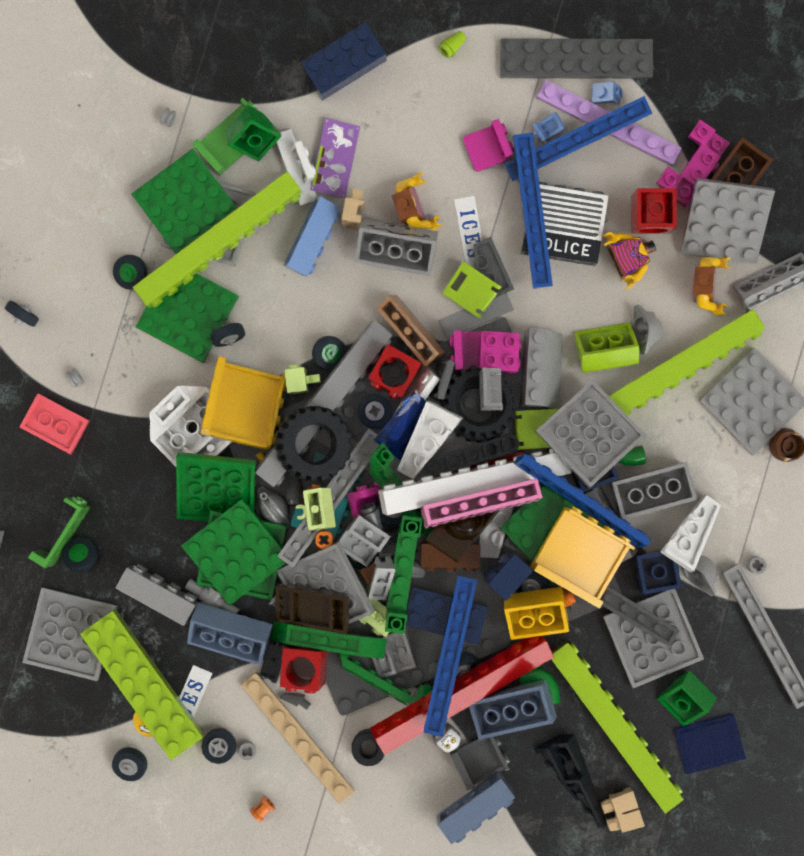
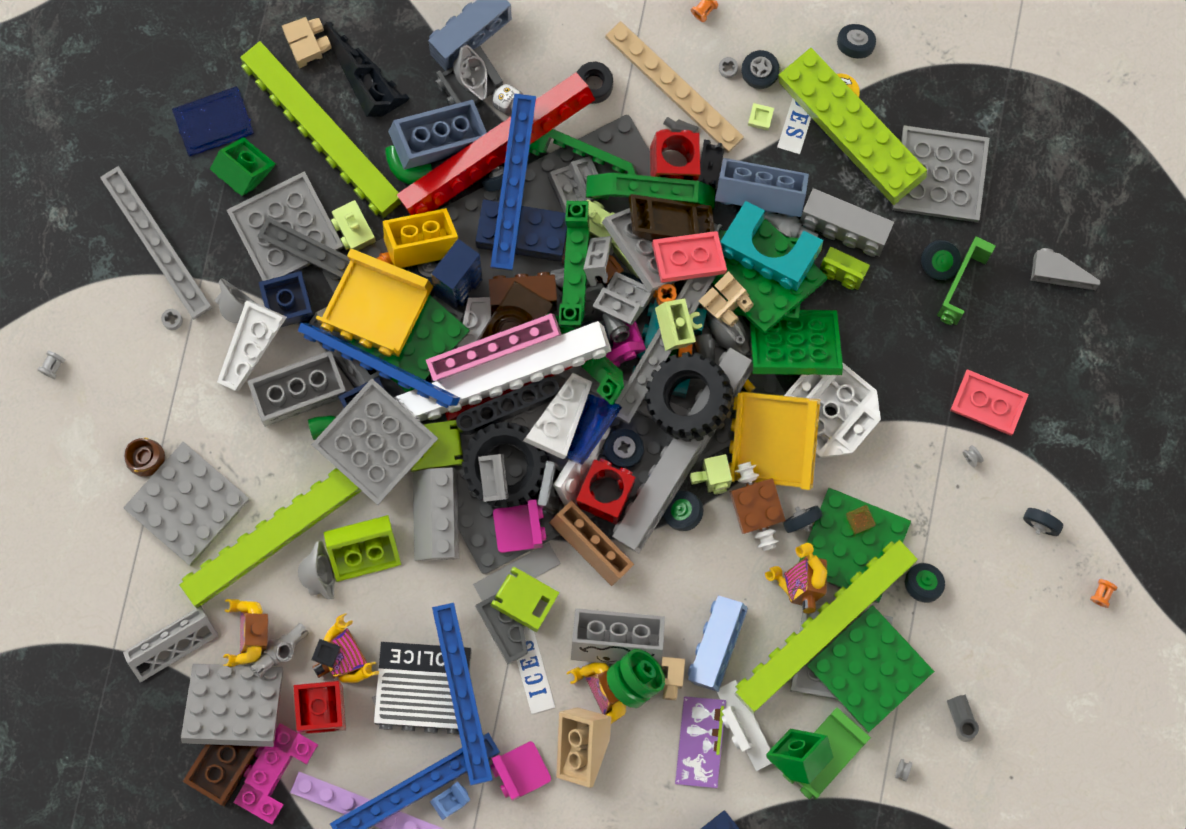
camera: 175 degrees right, 10 degrees down
(113, 156) = (962, 716): none -> dark grey piece
(165, 555) = (844, 268): none -> lime bracket
(177, 329) = (860, 519): none -> clear orange plate
(214, 552) = (786, 270): none -> teal arch
(223, 701) = (760, 116): none -> yellowish green plate
(232, 279) = (804, 581): none -> torso
(263, 533) = (719, 307): none -> tan hips
(265, 350) = (757, 506): none -> dark orange plate
(300, 571) = (689, 256): none -> coral plate
(385, 204) = (635, 678): none -> green wheel
(435, 161) = (581, 745): none -> tan slope
(477, 765) = (471, 72): none -> light grey hat
(500, 351) = (486, 525): dark pink bracket -> none
(593, 633) = (352, 226): none -> yellowish green brick
(644, 256) = (326, 653): none -> black tile
(677, 271) = (271, 654): none -> light grey pin

